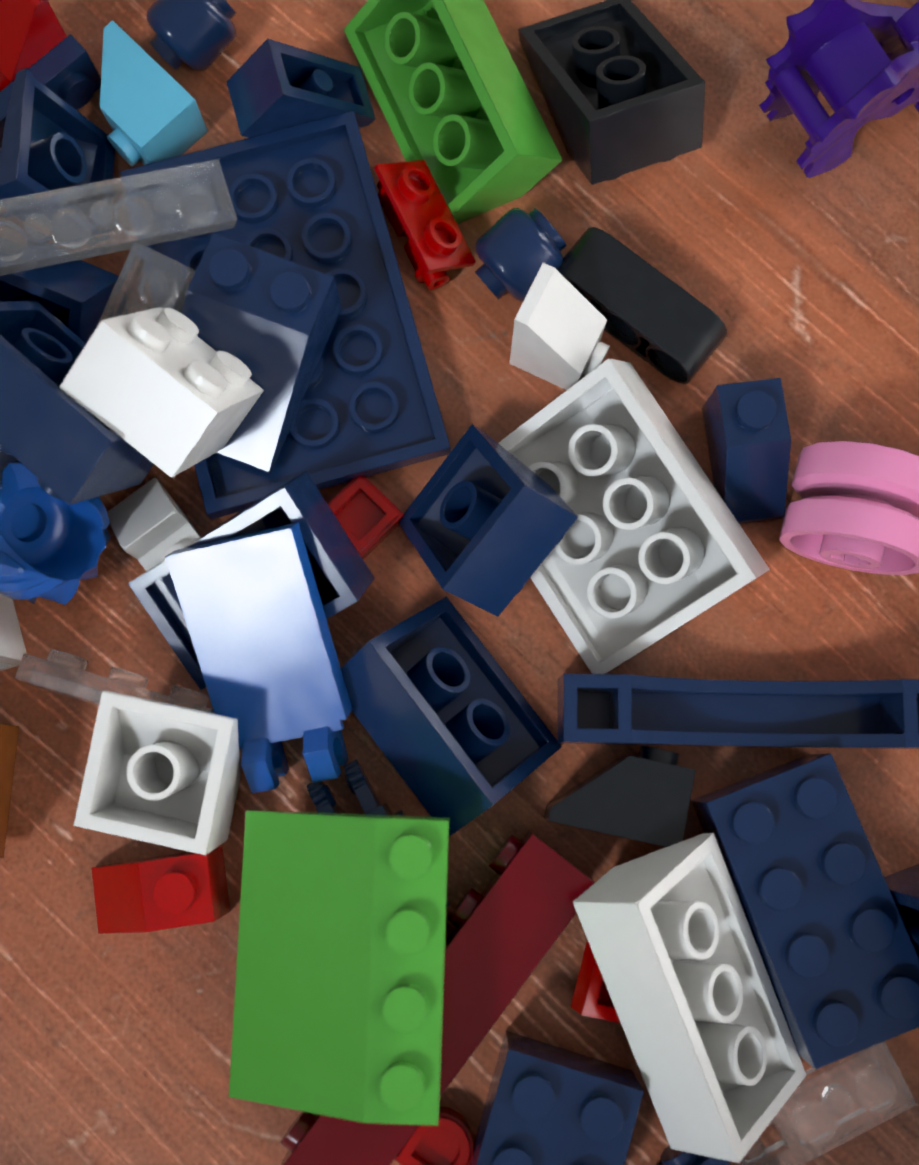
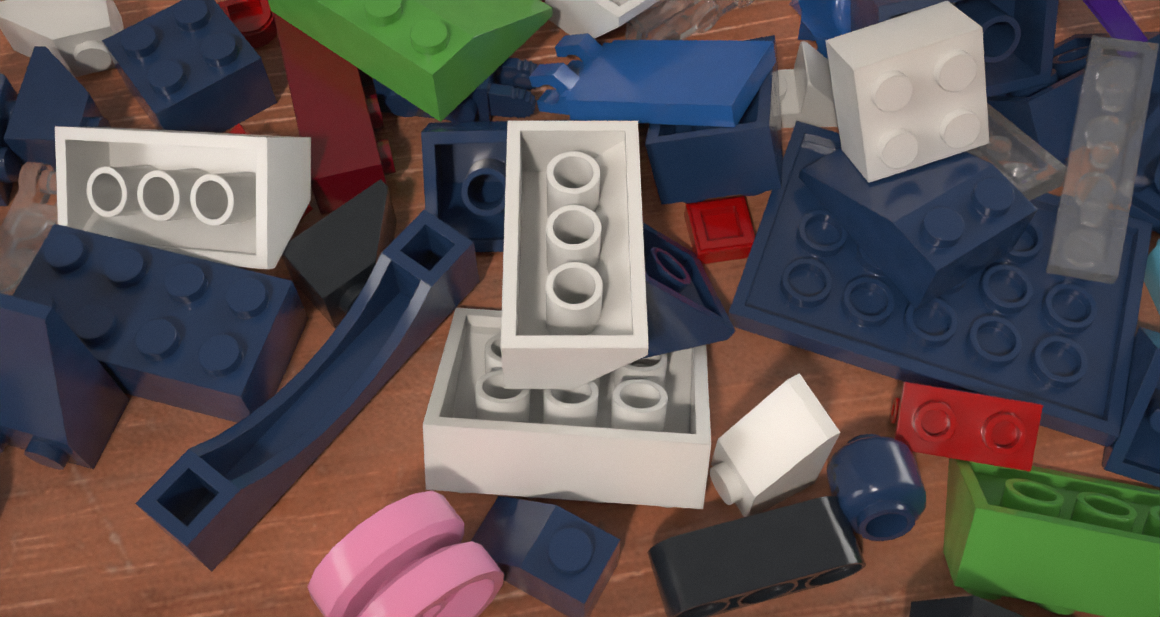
camera: 125 degrees right, 20 degrees down
(526, 567) = (572, 253): none -> white slope

